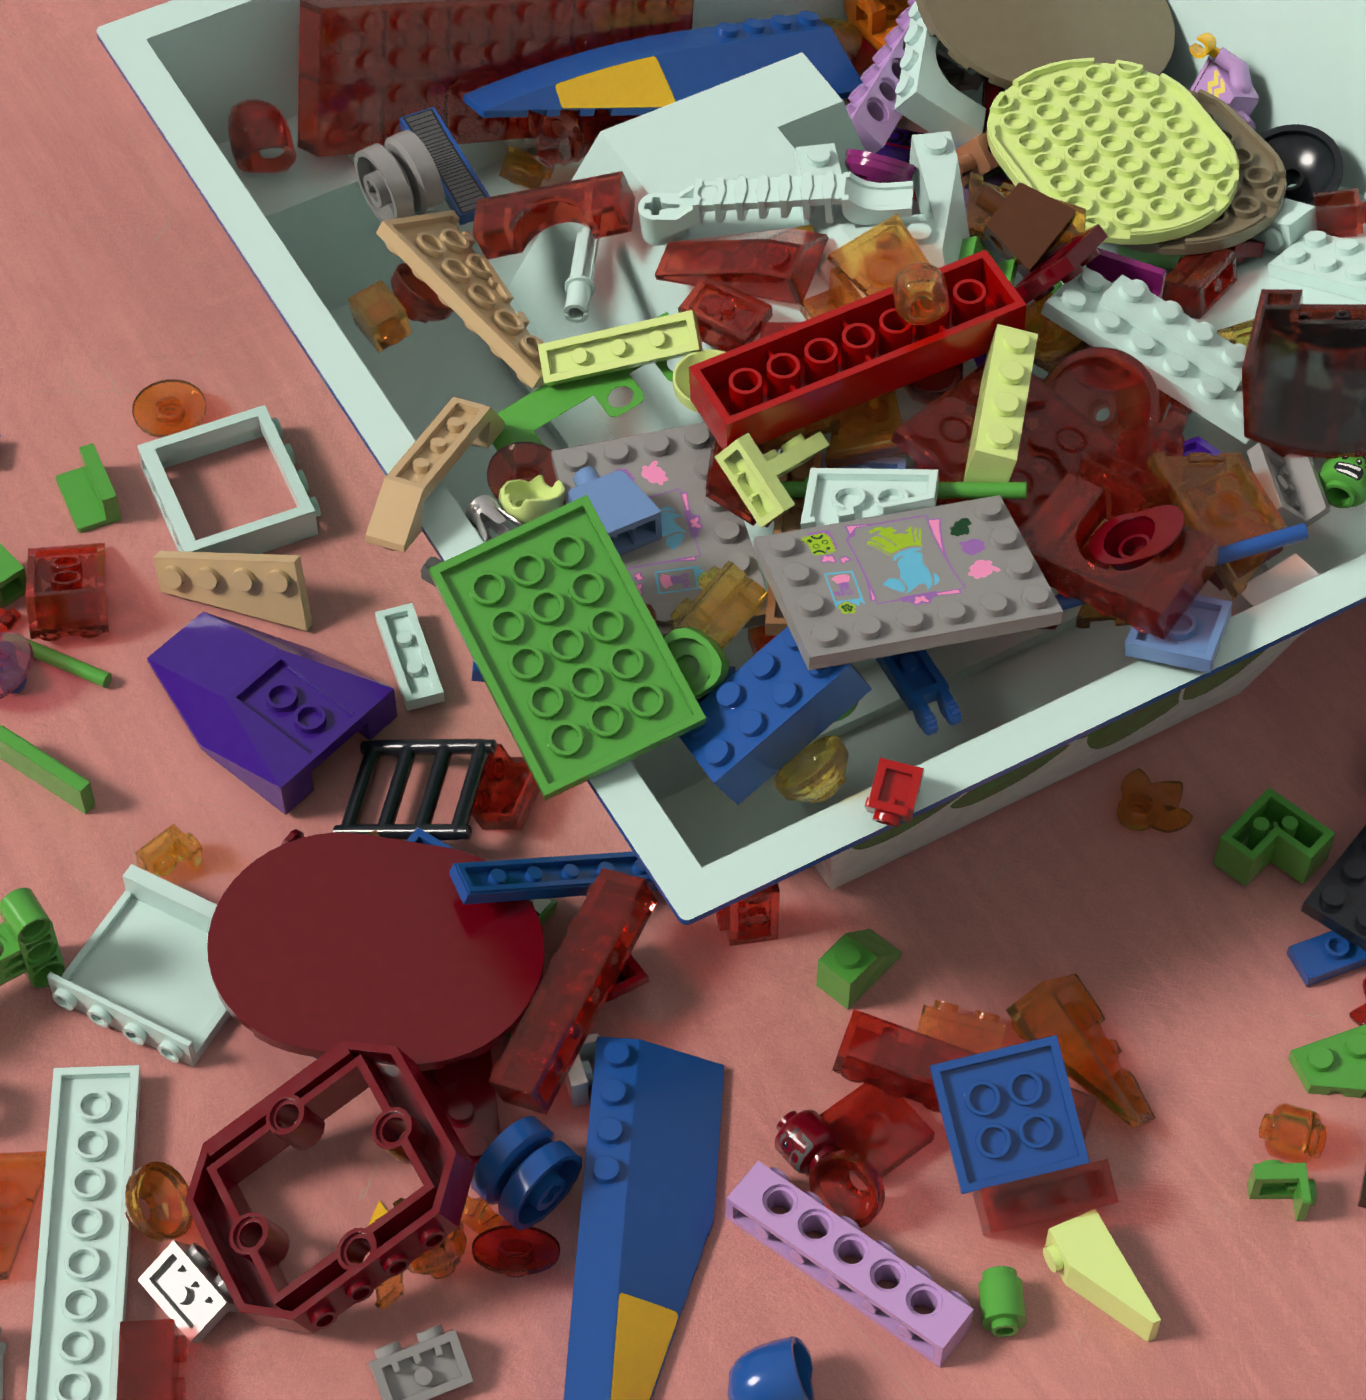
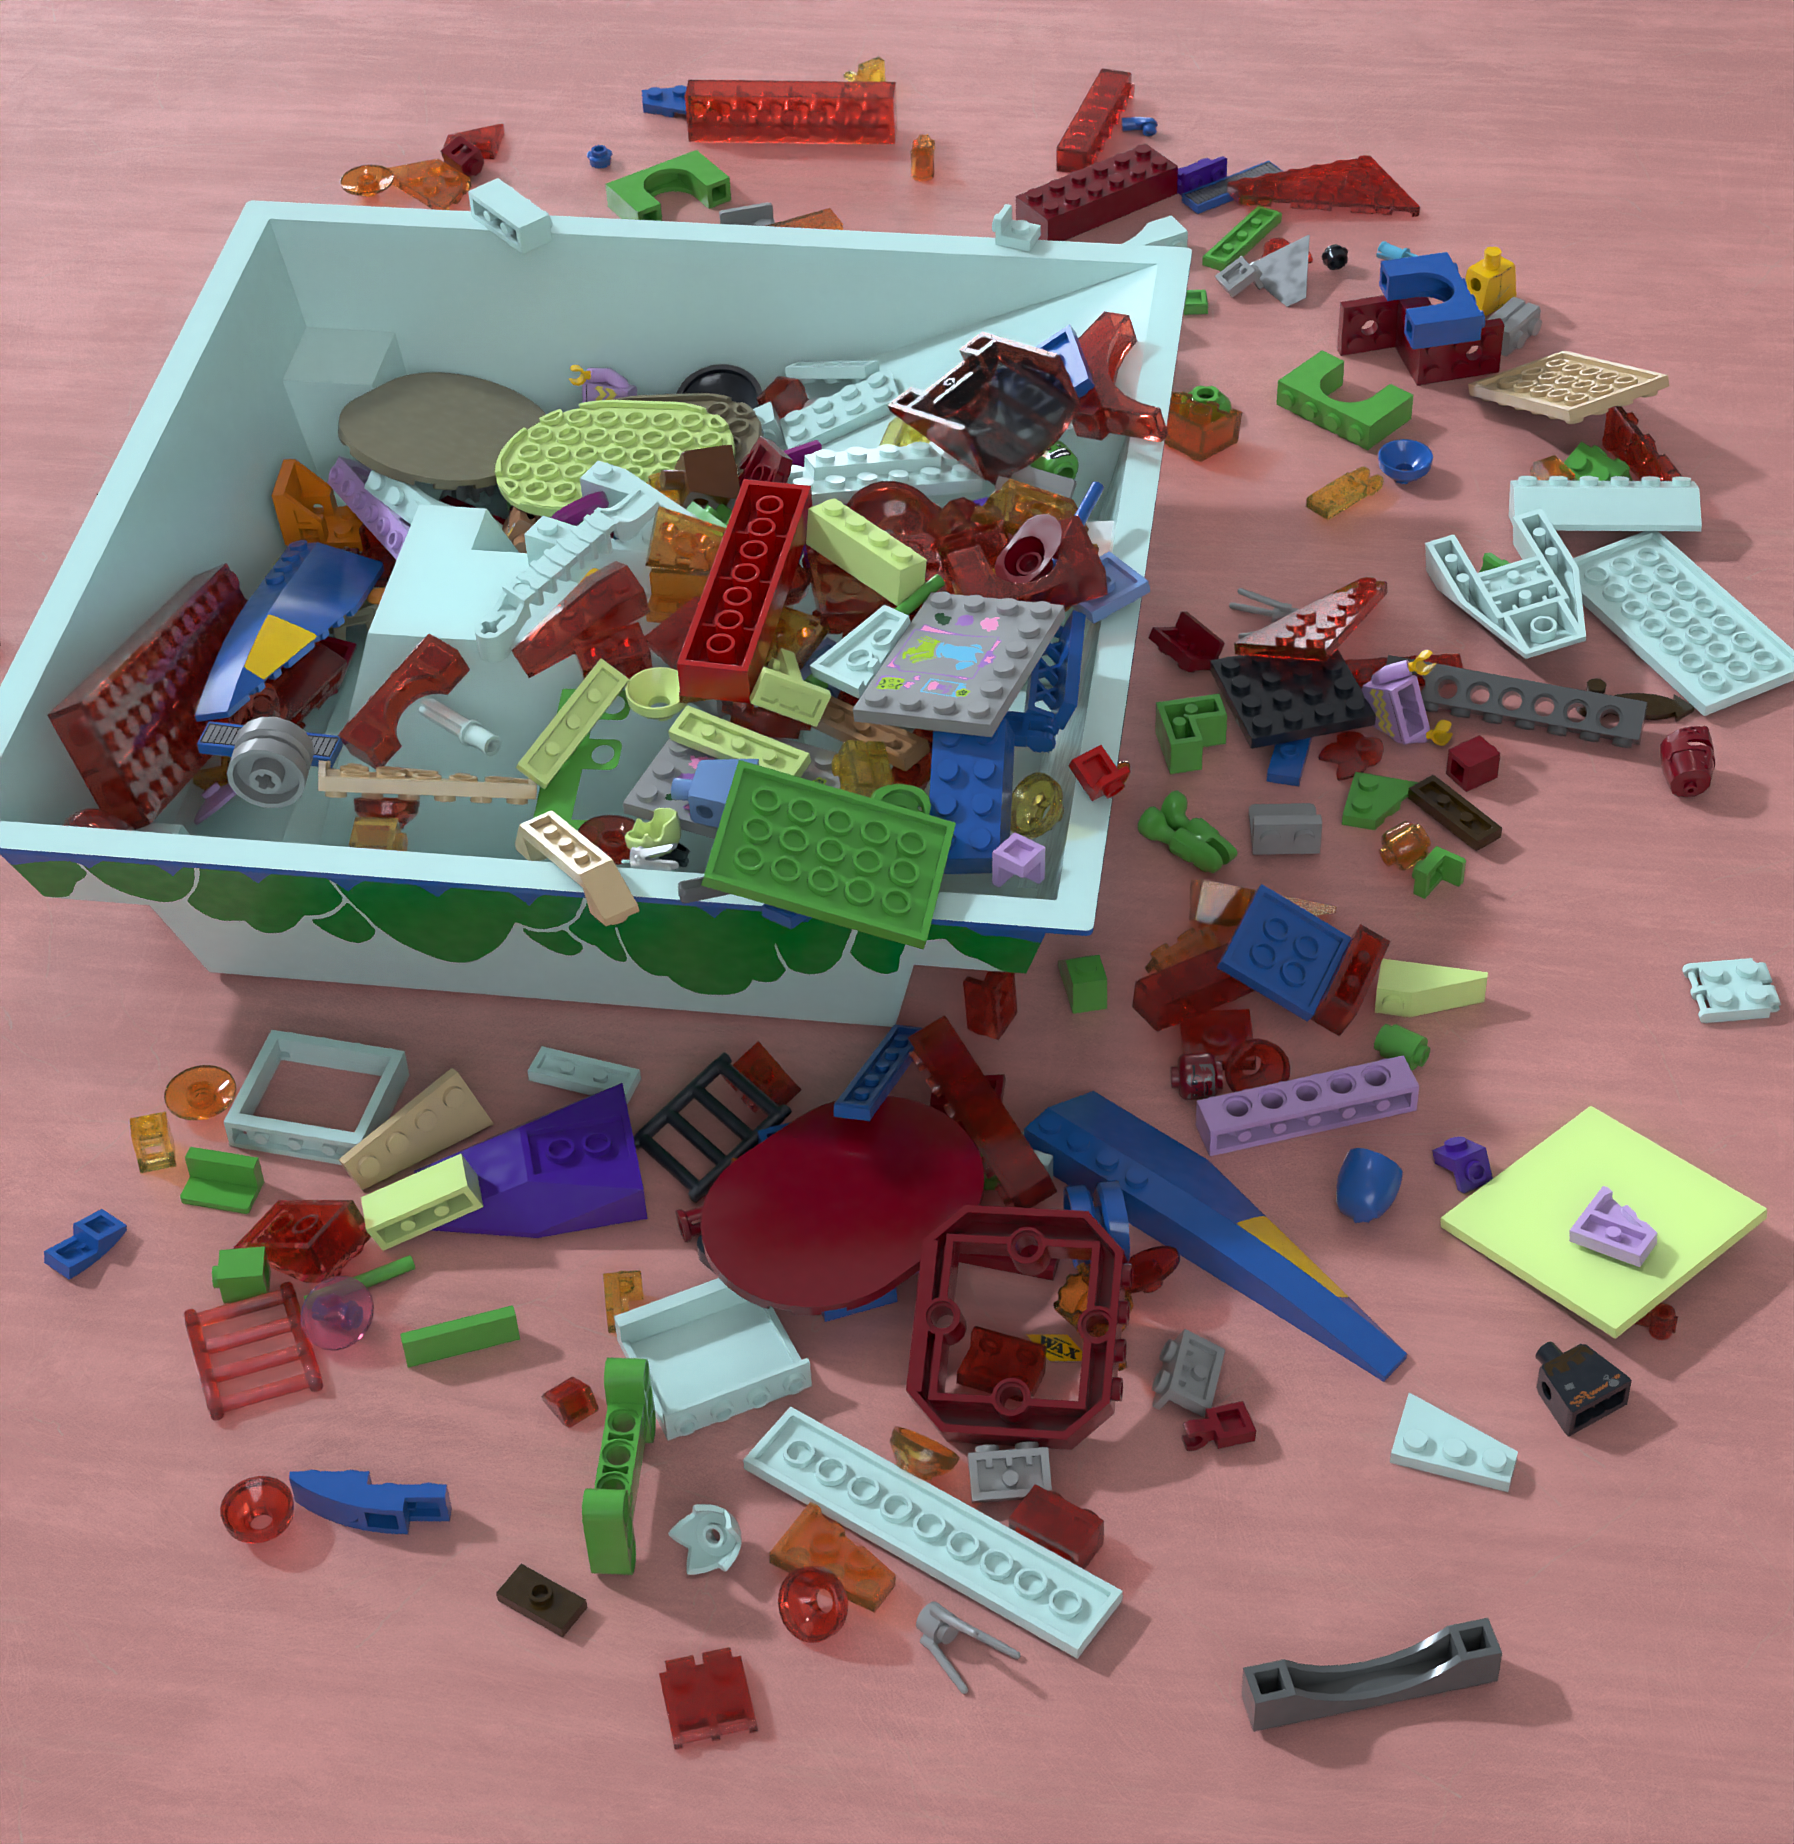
camera: 50 degrees left, 10 degrees down
(47, 889) = (571, 1401): none -> clear red slope
(90, 415) = (153, 1142): none -> clear yellow window
(156, 640) = (421, 1202): none -> yellowish green brick
(309, 1205) = (1001, 1356): none -> clear red bracket
(494, 182) = (214, 798): none -> lavender dish
(683, 488) = (731, 741): none -> yellowish green plate
(724, 799) = (1018, 857): none -> lavender panel
(920, 293) = (756, 519): clear orange head -> none
(1043, 672) = (1063, 676): none -> blue fence
(1128, 942) = (1188, 839): none -> bright green piece
(1222, 1009) = (1285, 829): none -> light grey bracket

